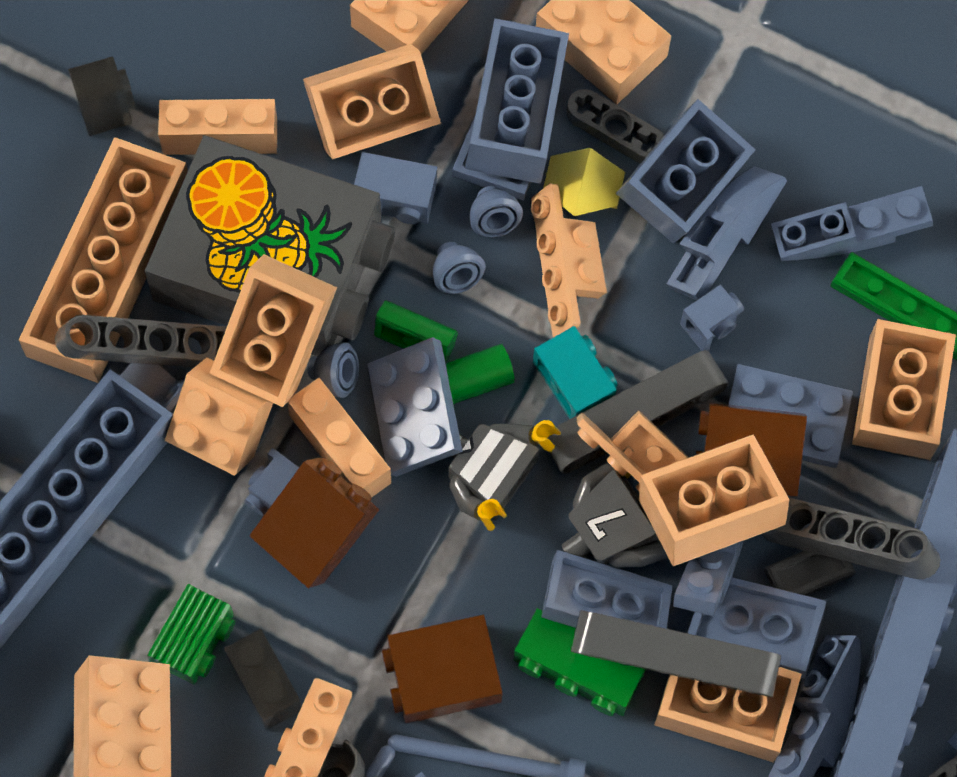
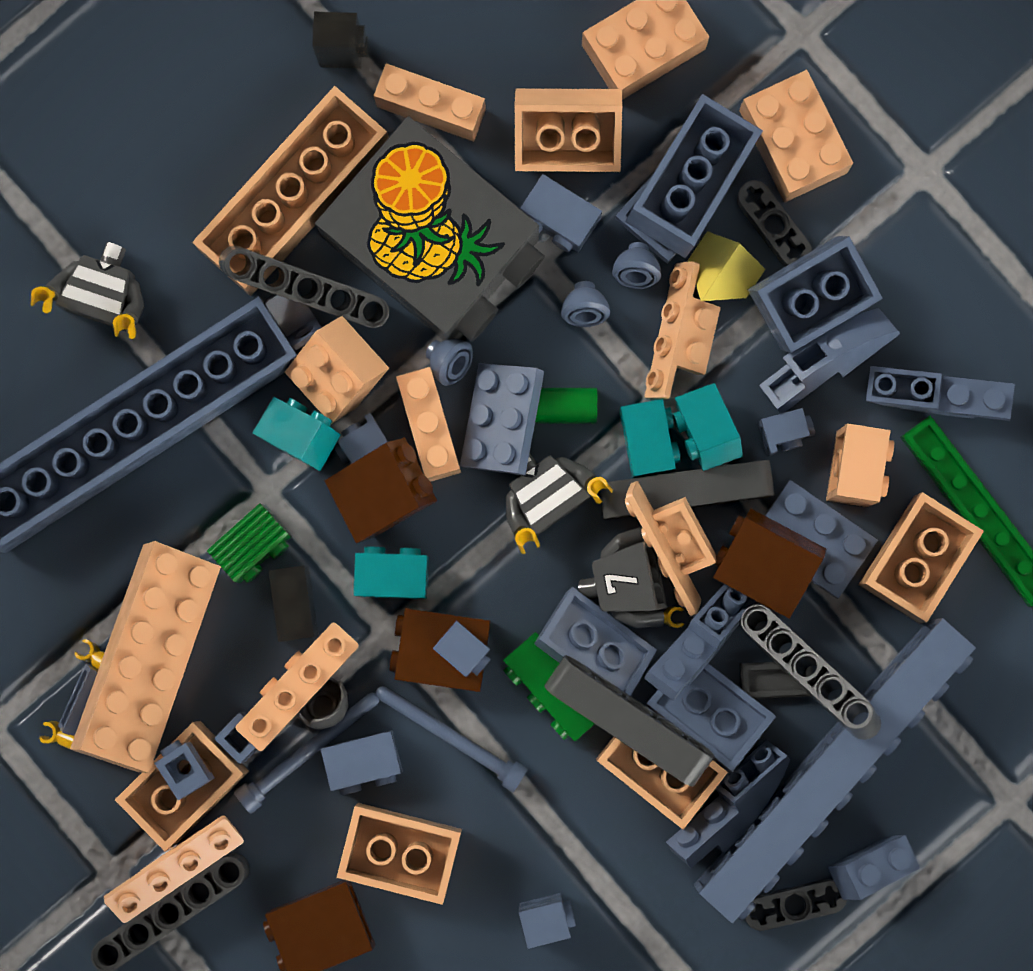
camera: 30 degrees right, 15 degrees up
(201, 496) = (297, 433): none -> teal brick
(273, 330) = (400, 320): light nougat brick -> none
(358, 610) = (391, 574): none -> teal brick
(408, 328) = (528, 348): green brick -> none
(468, 650) = (463, 650): none -> sand blue brick
(632, 337) = (708, 427): none -> teal brick
(713, 500) = (713, 604): light nougat brick -> none
(802, 319) = (860, 465): none -> light nougat brick

